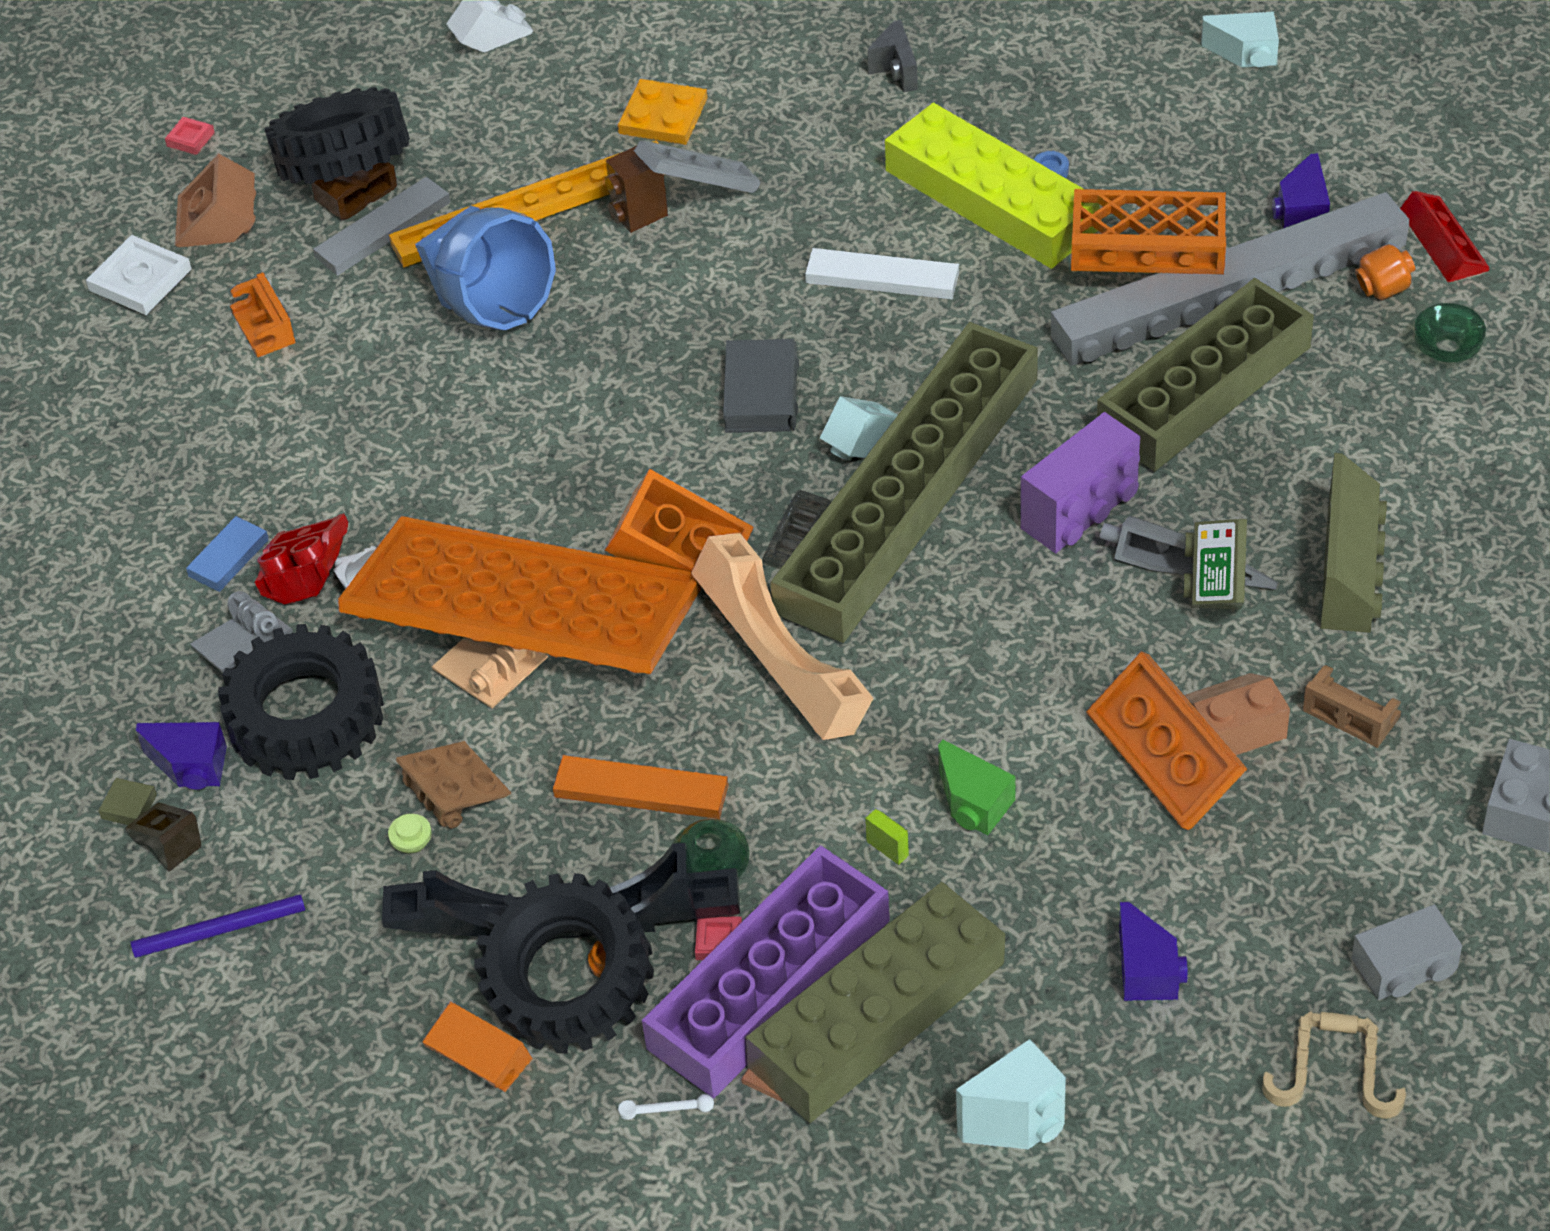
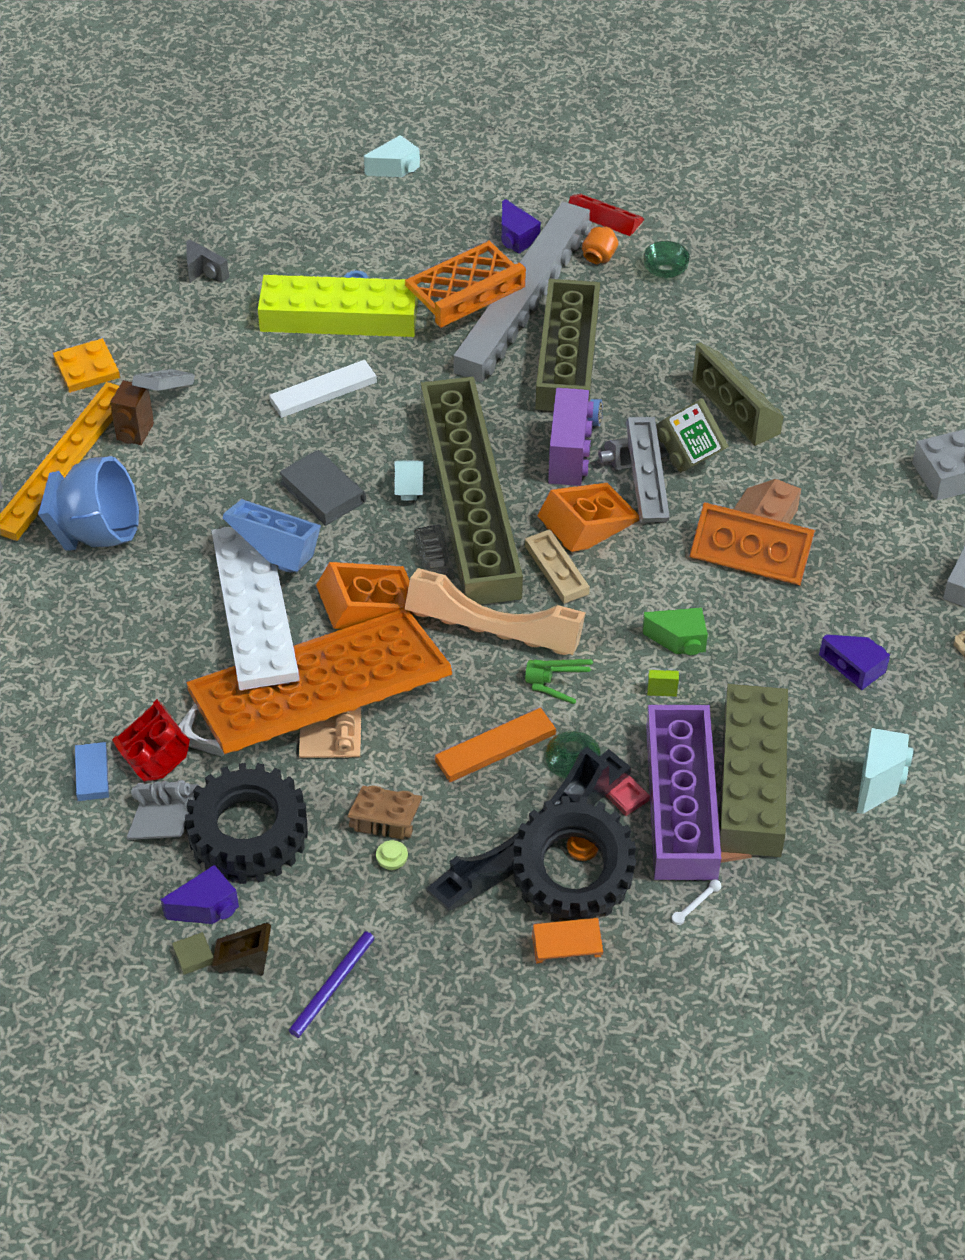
camera: 45 degrees left, 0 degrees up
(544, 474) = (254, 613): none -> white plate
(634, 405) = (275, 535): none -> medium blue slope
(771, 739) = (540, 672): none -> bright green plant
(917, 629) = (557, 566): none -> tan plate
(1015, 589) = (586, 515): none -> orange slope
(1131, 575) = (647, 469): none -> light grey plate
(1157, 474) = (597, 412): none -> medium blue tile
(1349, 709) = (818, 477): medium nougat hinge -> none

